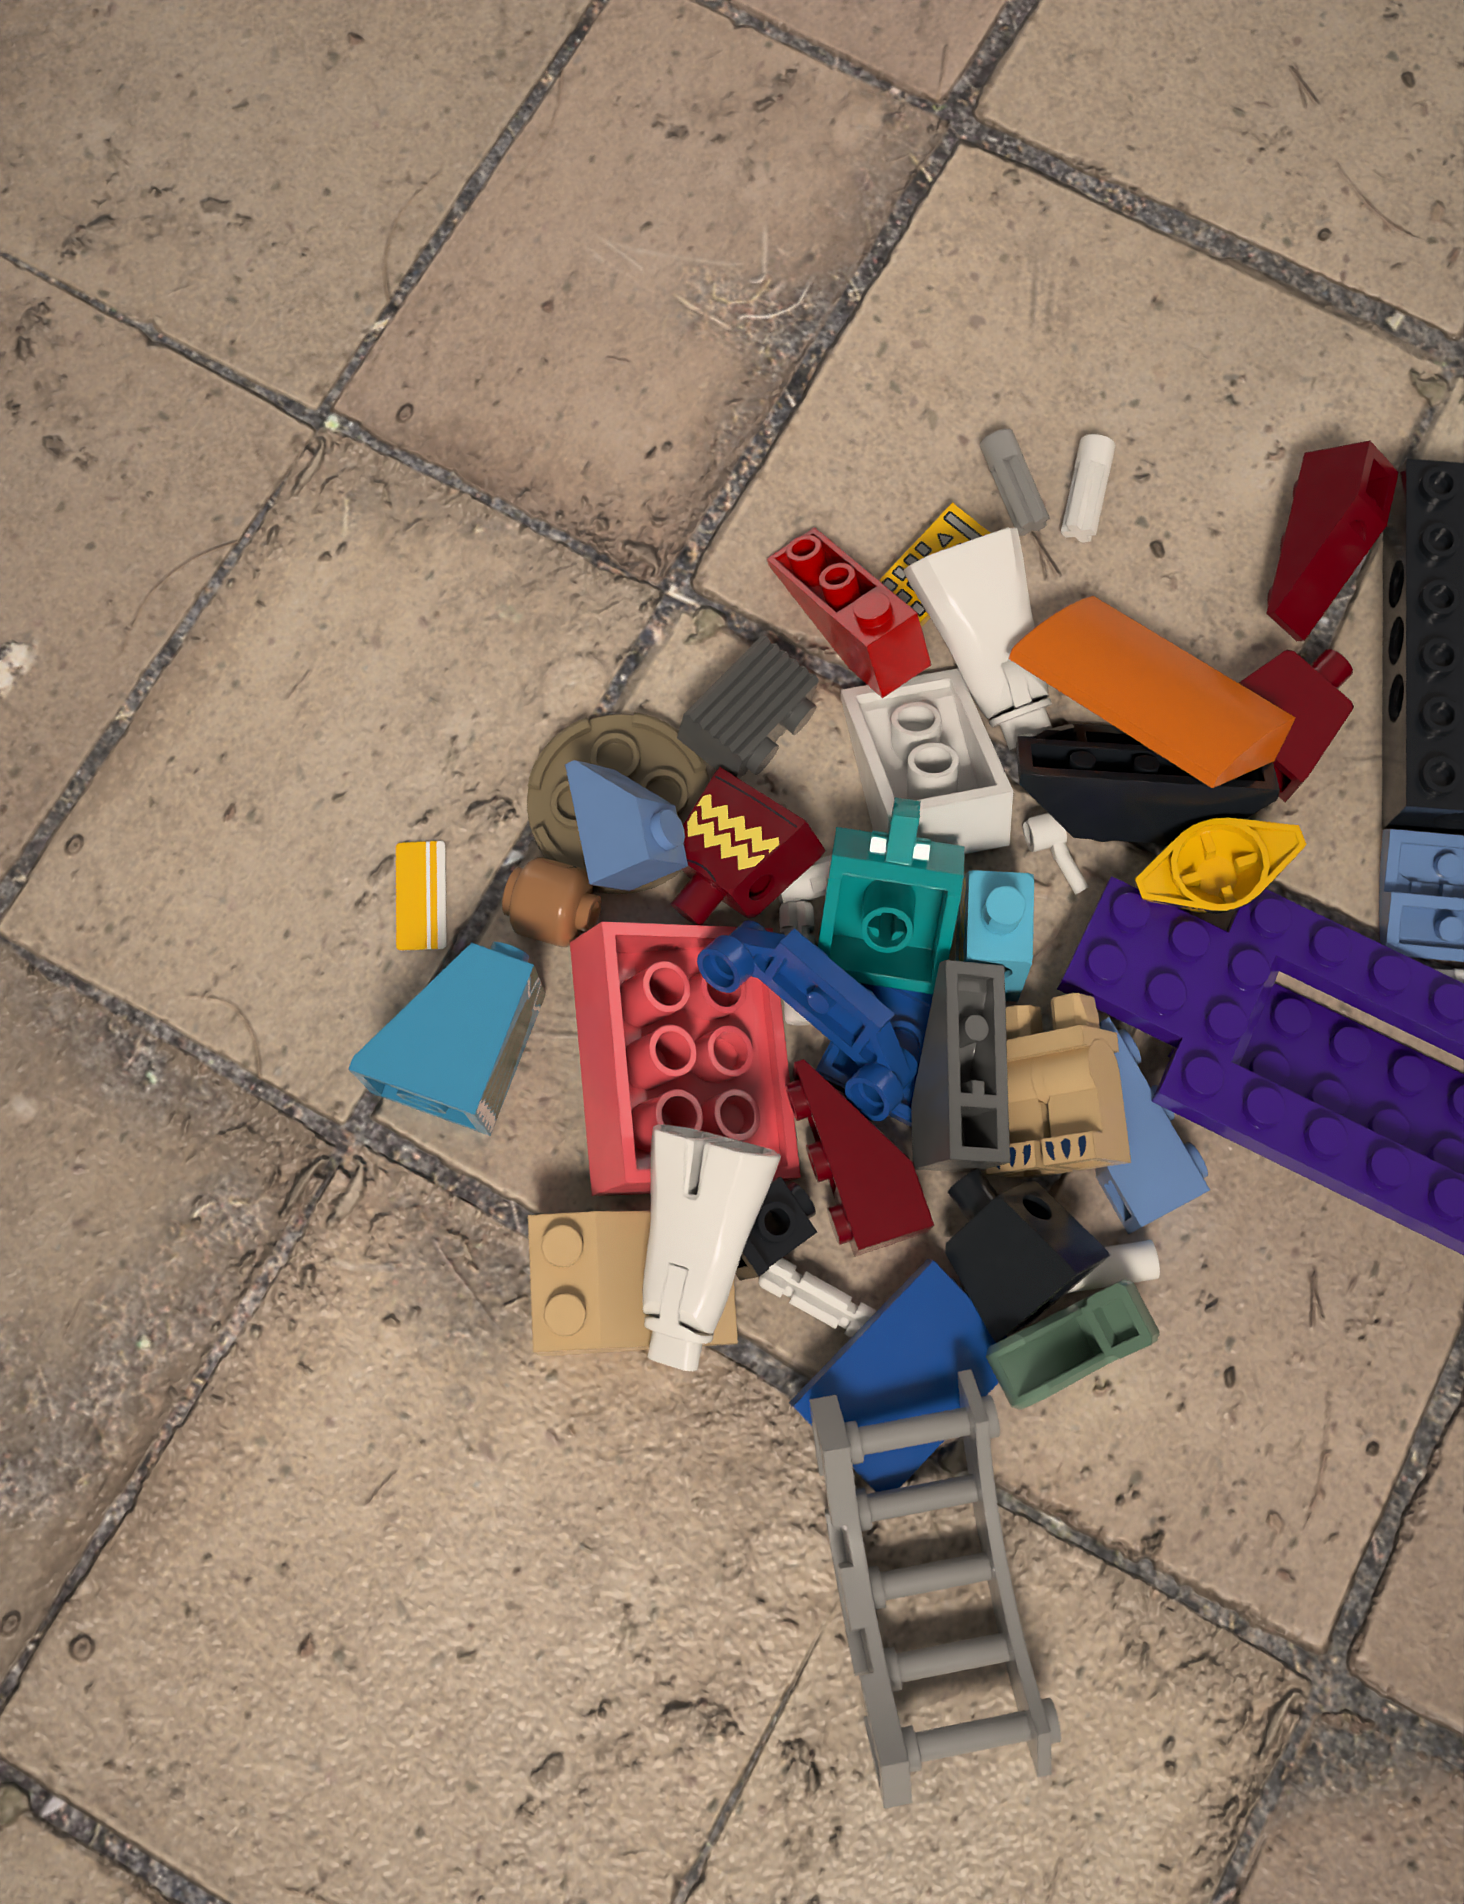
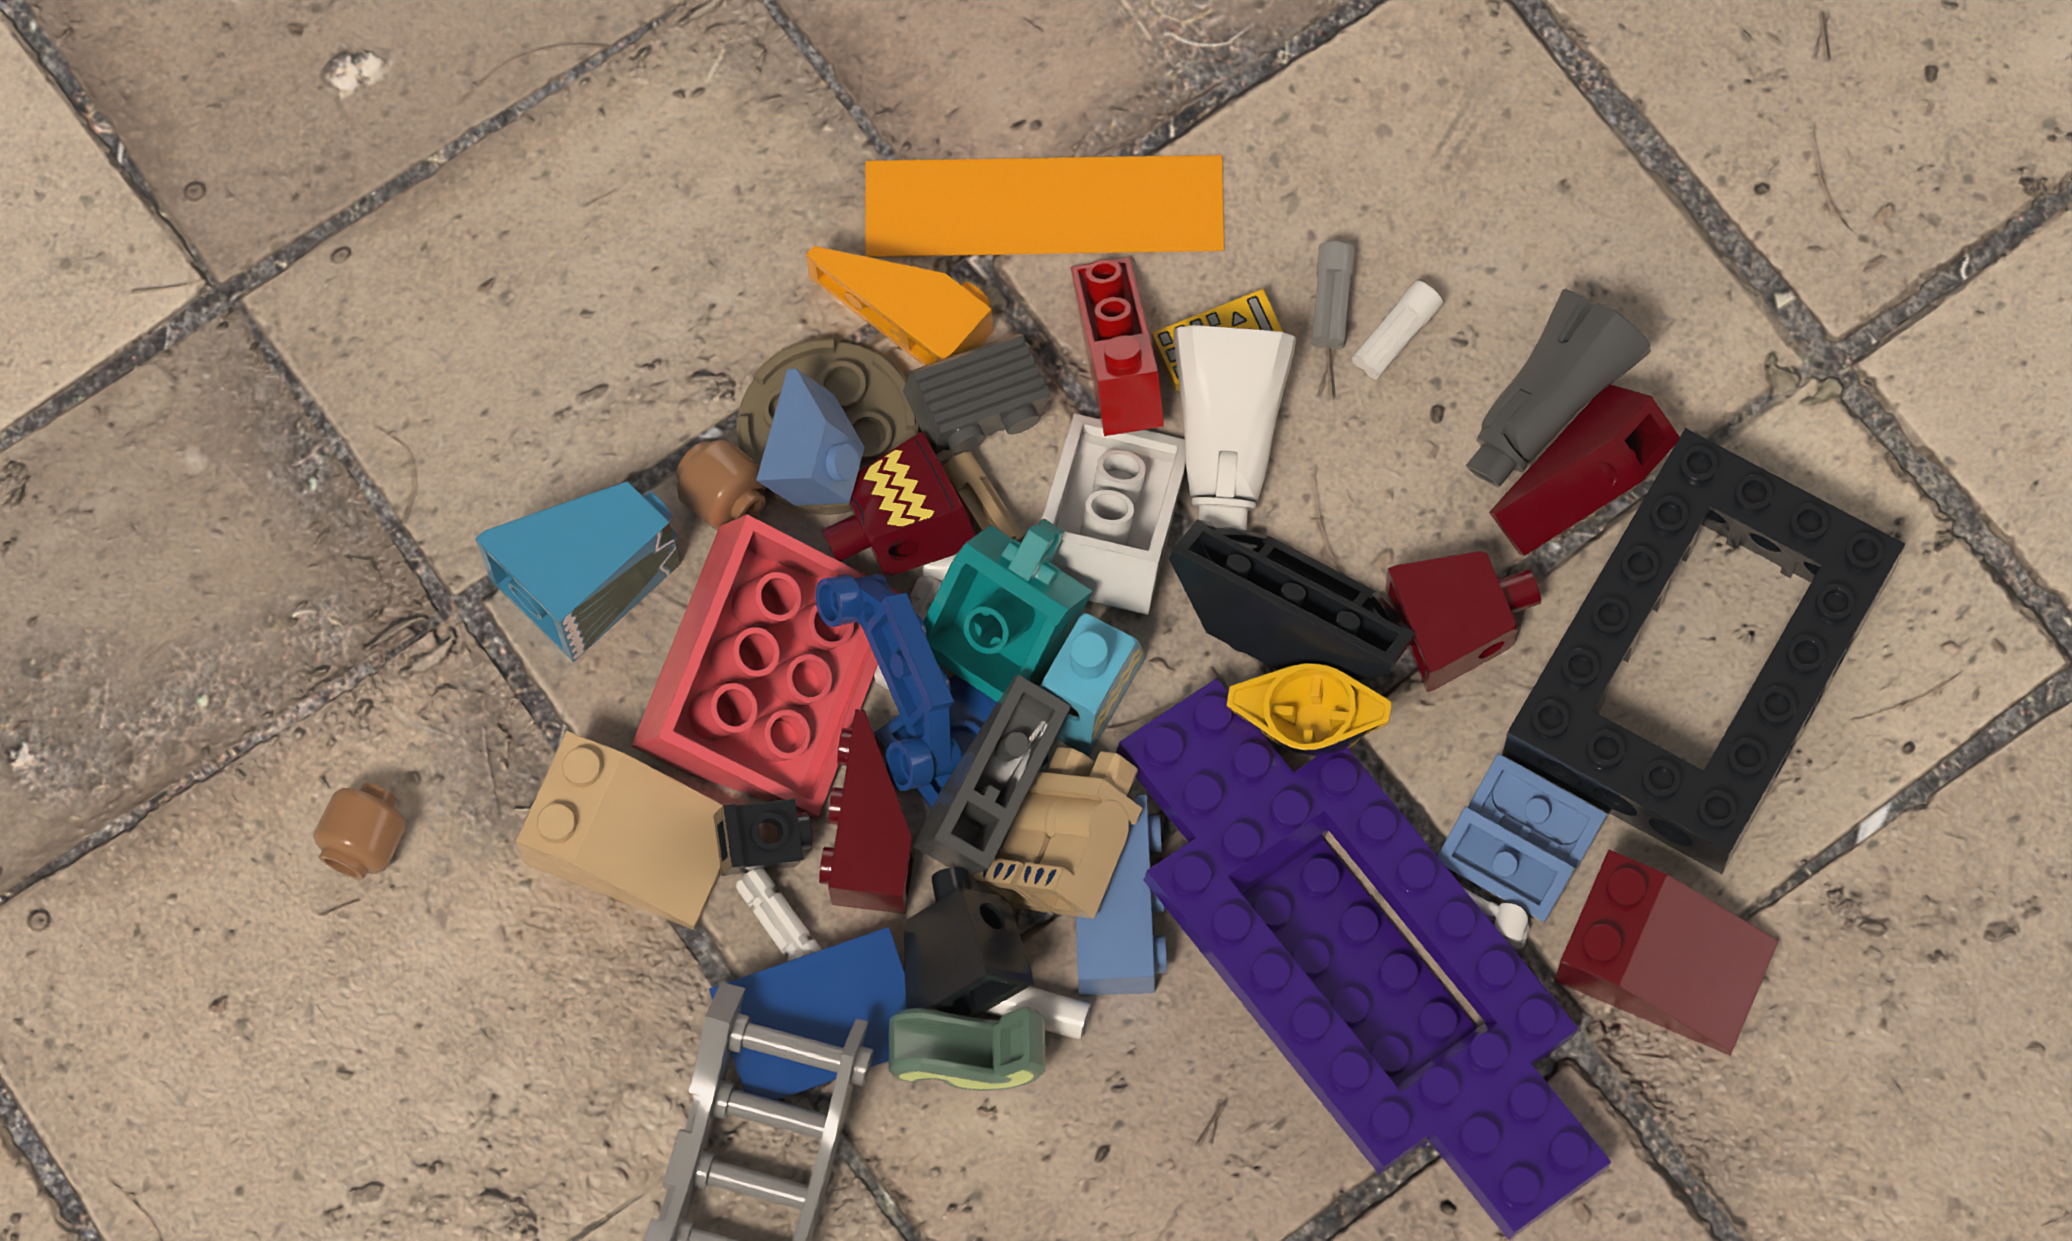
camera: 30 degrees right, 5 degrees down
(366, 1406) = (359, 830): none -> medium nougat head
(420, 895) = (615, 430): yellow sticker -> none
(644, 656) = (909, 305): none -> light orange slope
(701, 1216) = (707, 789): white piece -> none
(710, 516) = (1044, 205): none -> light orange sticker
(818, 815) = (979, 496): none -> tan piece
(1044, 833) = (1186, 622): white hand -> none
(1154, 691) = (1331, 531): orange slope -> none
(1262, 458) = (1573, 361): none -> dark grey piece

